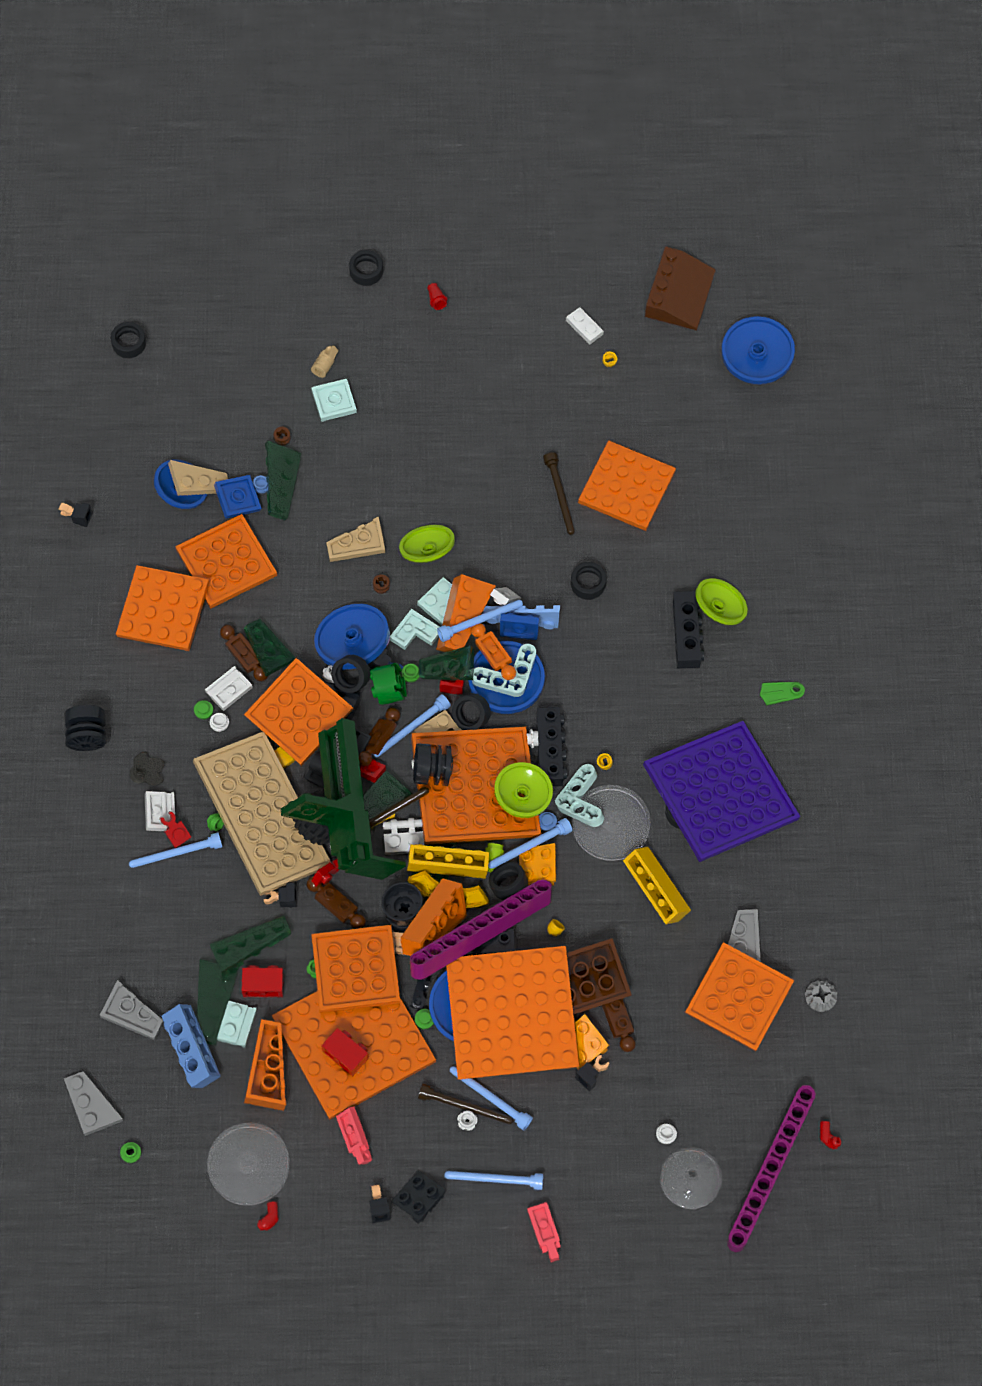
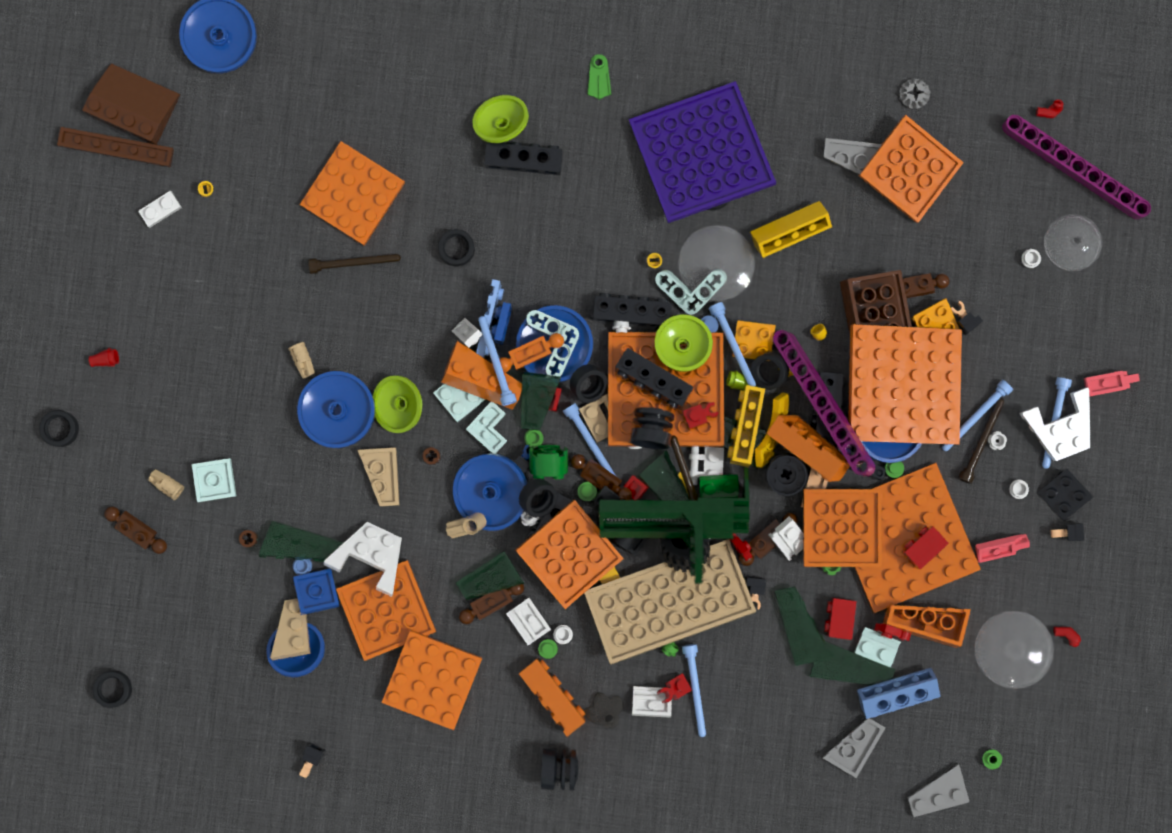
camera: 80 degrees left, 20 degrees up
(155, 717) = (552, 696): none -> orange wedge
(253, 1029) = (888, 631): none -> red plate
(279, 341) = (135, 530): none -> reddish brown plate
(285, 540) = (374, 548): none -> white wing
(316, 619) = (465, 525): none -> tan piece
(339, 916) = (788, 538): none -> white plate
(364, 725) = (587, 491): none -> bright green plate
(384, 843) = (719, 486): none -> green plate
(414, 492) = (336, 409): none -> blue dish
(418, 1148) = (1018, 489): none -> white plate
(452, 812) = (697, 416): none -> red plate
(459, 460) = (302, 359): none -> tan hinge
(482, 1188) = (1064, 435): none -> white wing
(483, 767) = (653, 379): none -> black brick
(636, 282) = (115, 147): none -> reddish brown plate

